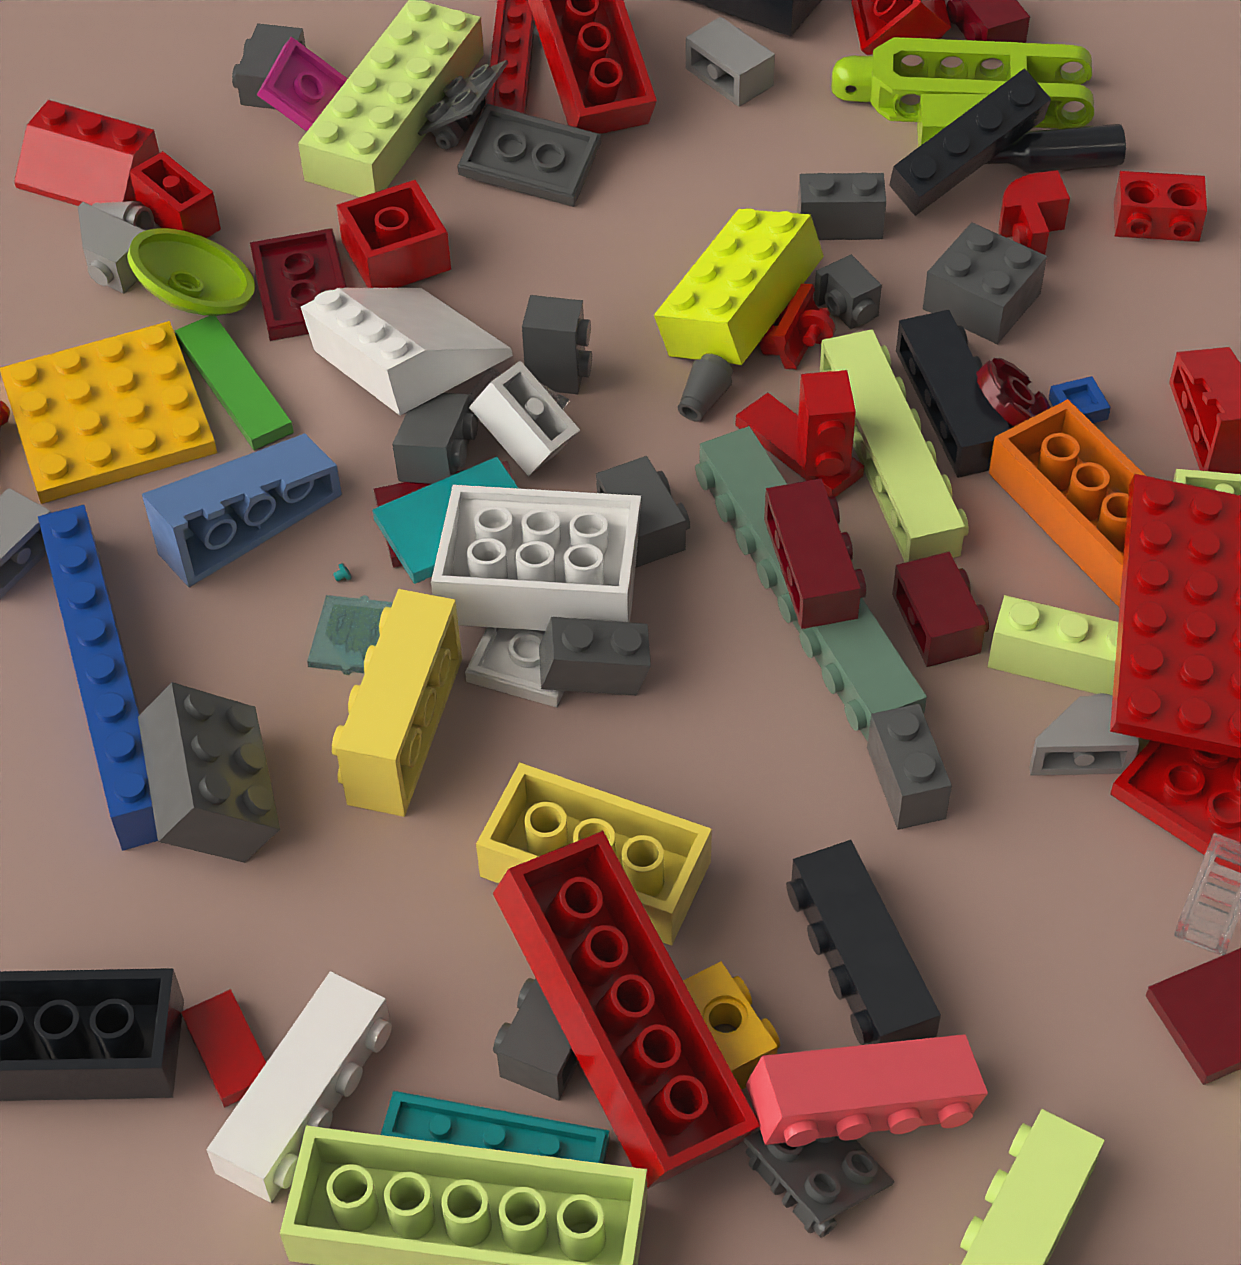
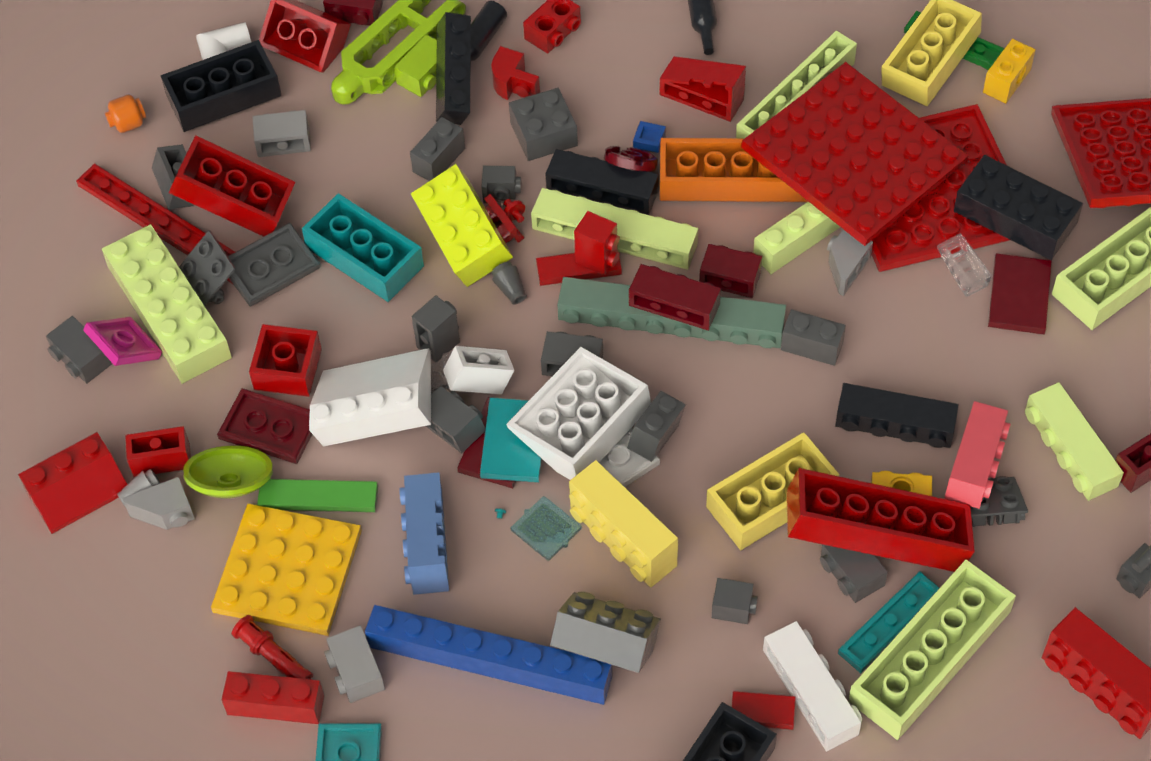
camera: 55 degrees left, 5 degrees up
(379, 907) = (733, 601): none -> dark grey brick
(622, 217) = (363, 247): none -> teal brick

